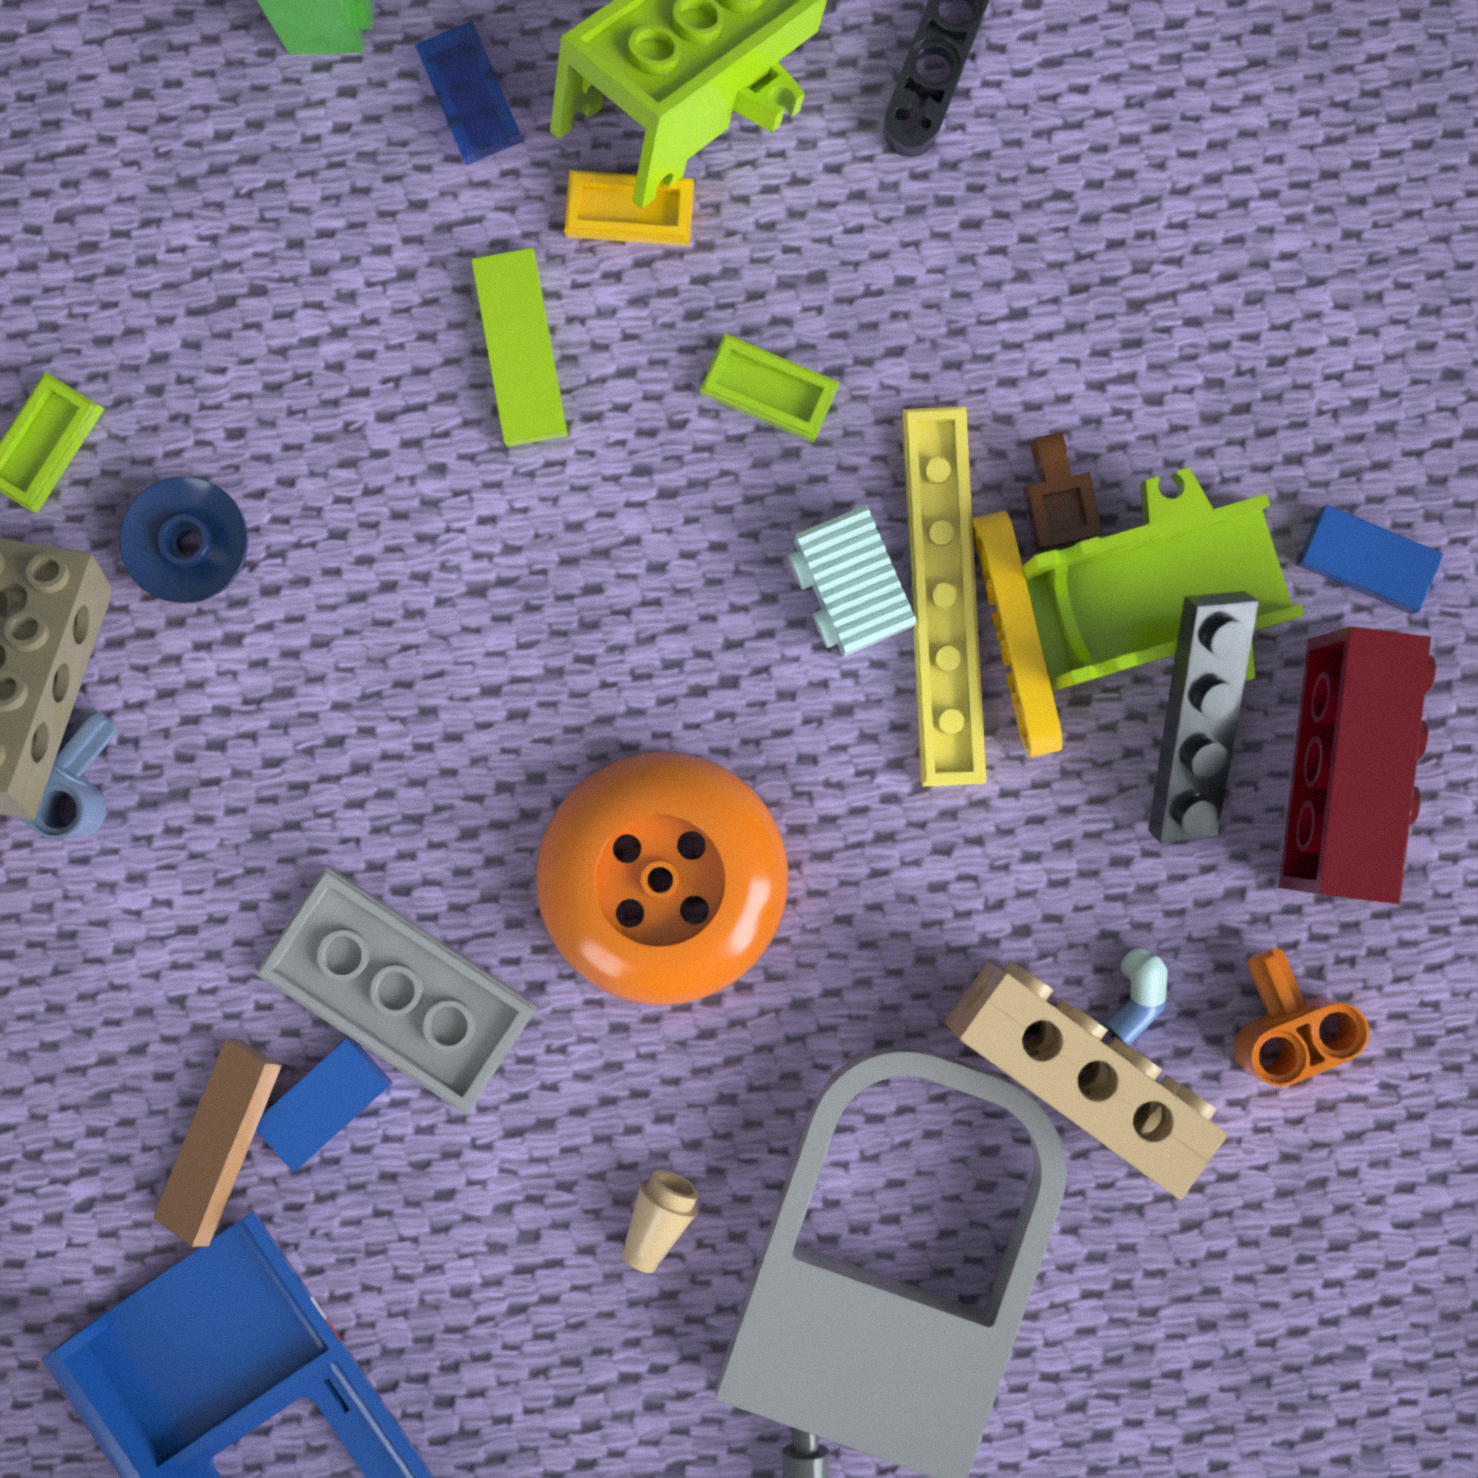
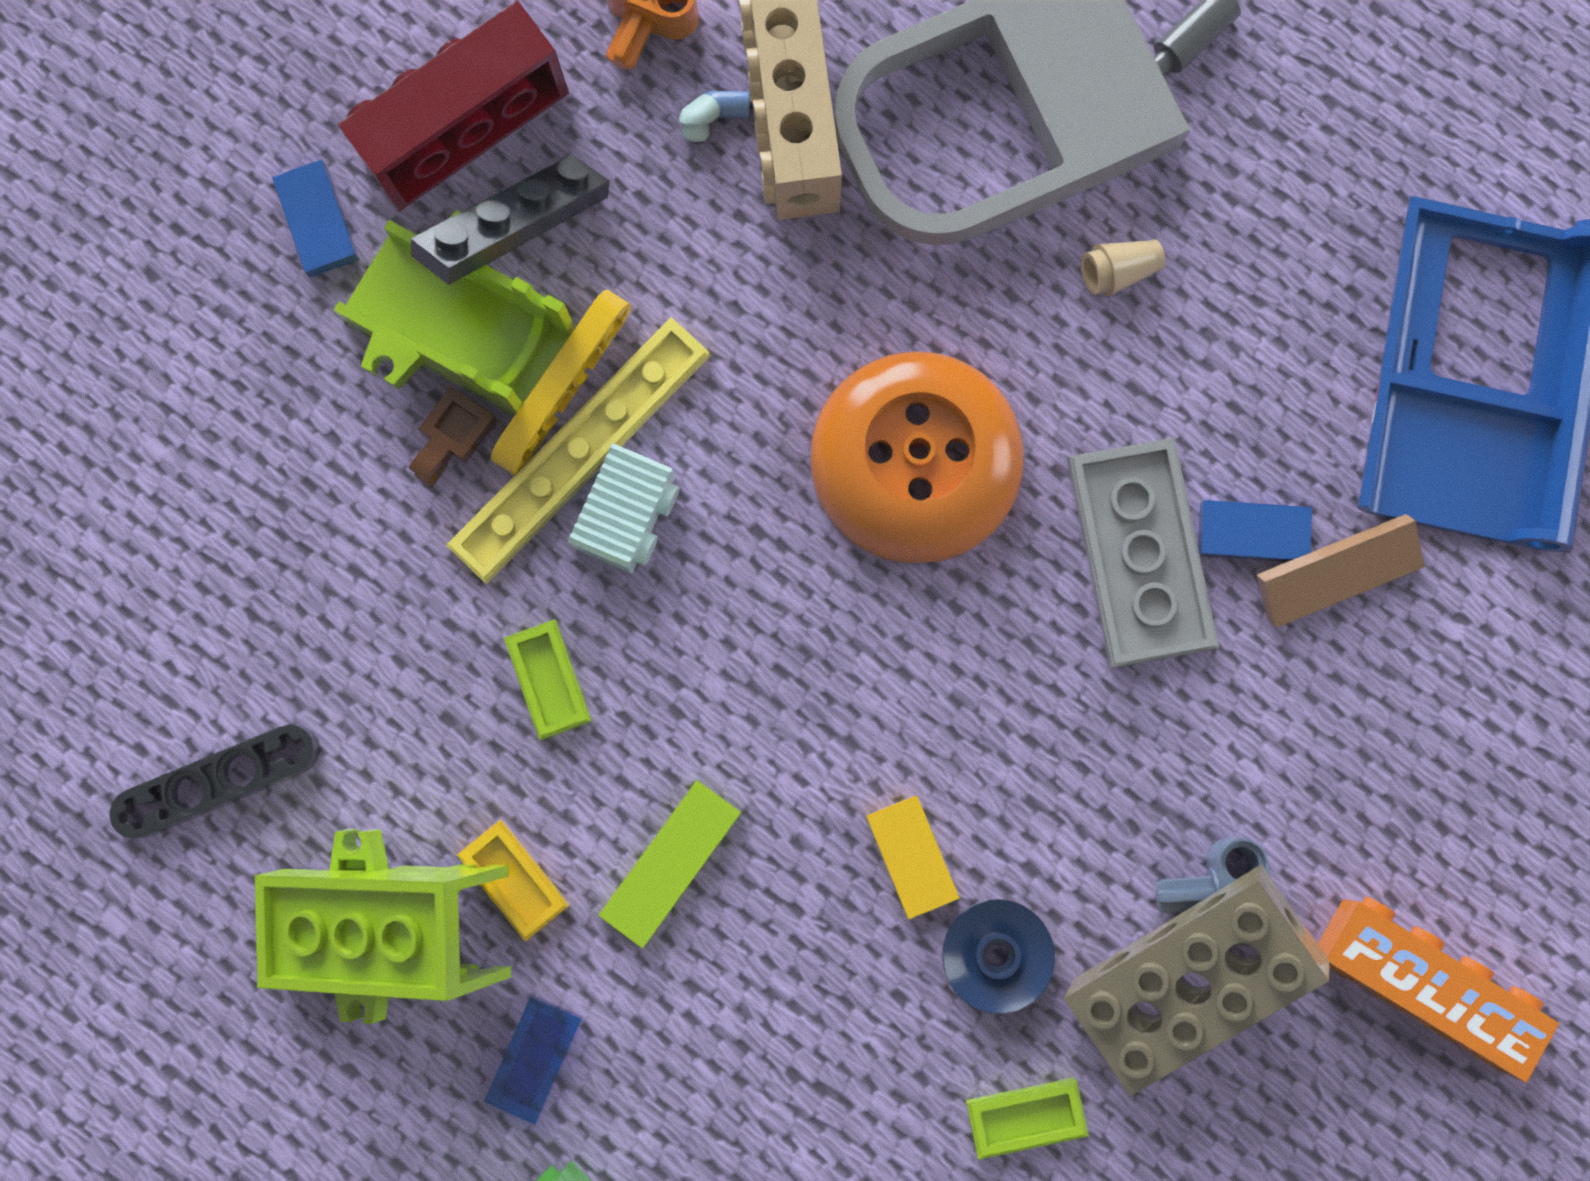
camera: 135 degrees left, 5 degrees down
(334, 549) = (912, 857): none -> yellow tile

